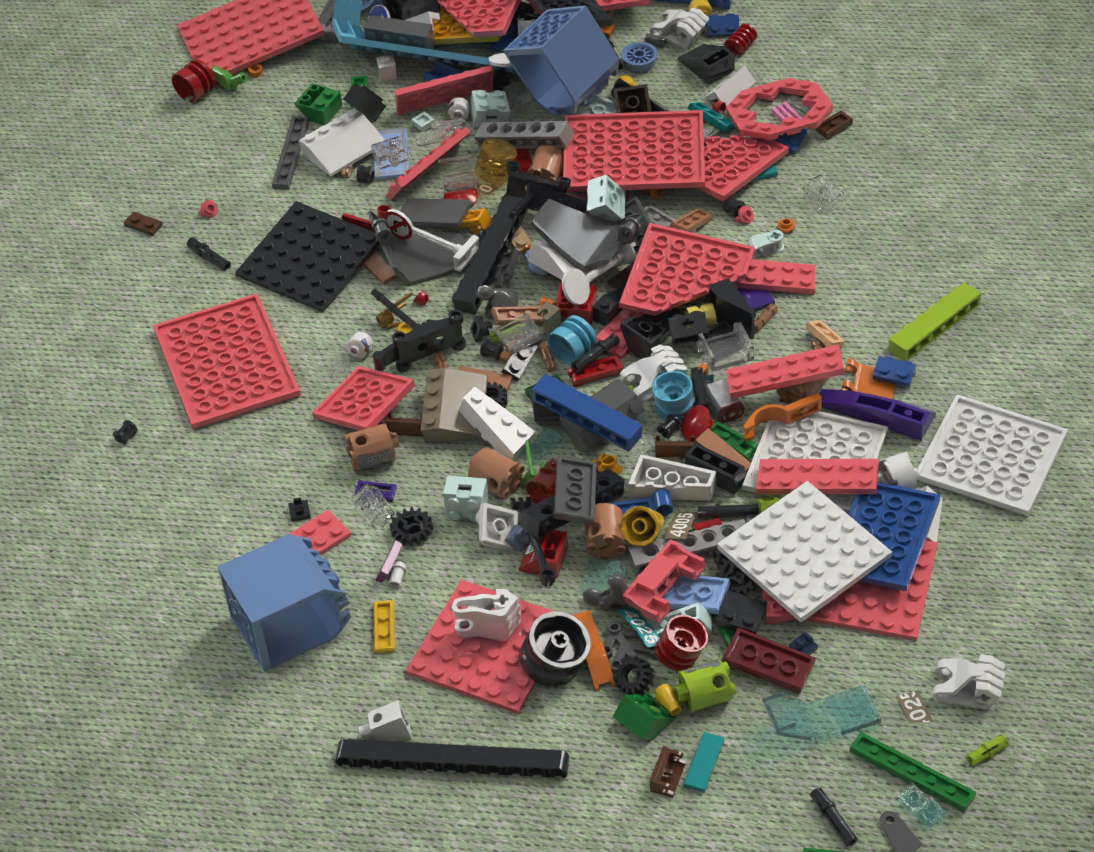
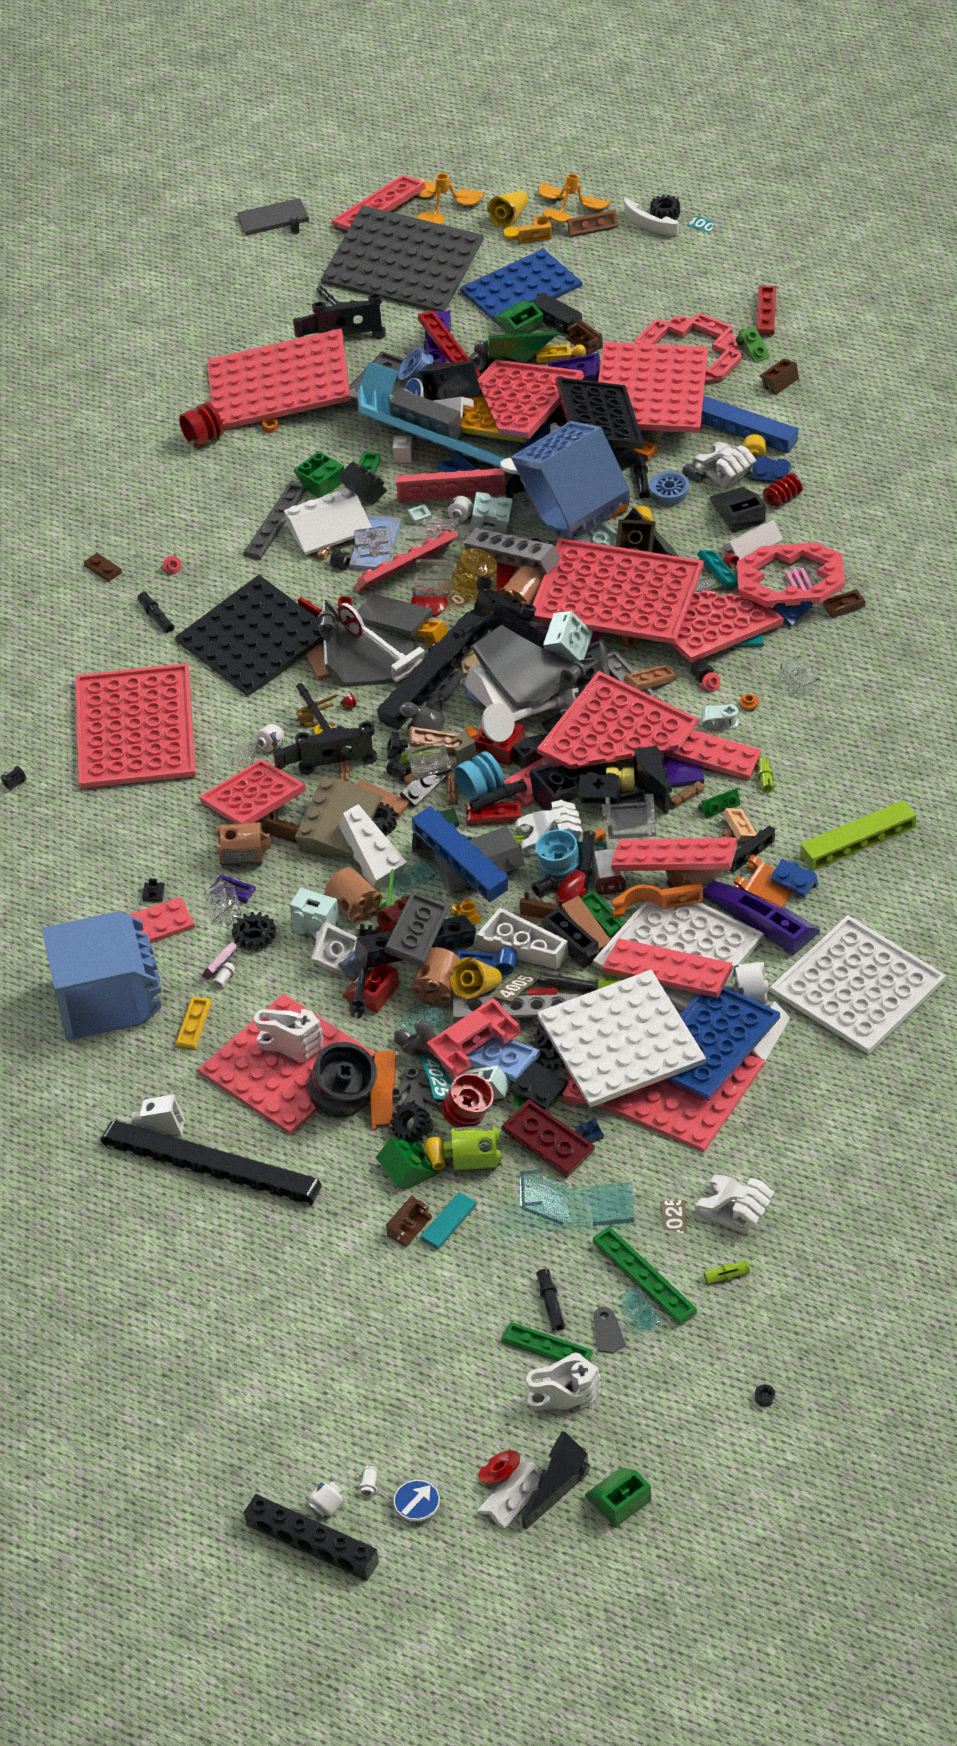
camera: 15 degrees right, 0 degrees up
(226, 79) = (236, 428): bright green arm -> none
(798, 319) = (720, 802): none -> green hinge
(827, 285) = (765, 774): none -> lime pin
(850, 345) = (753, 847): none -> black plate

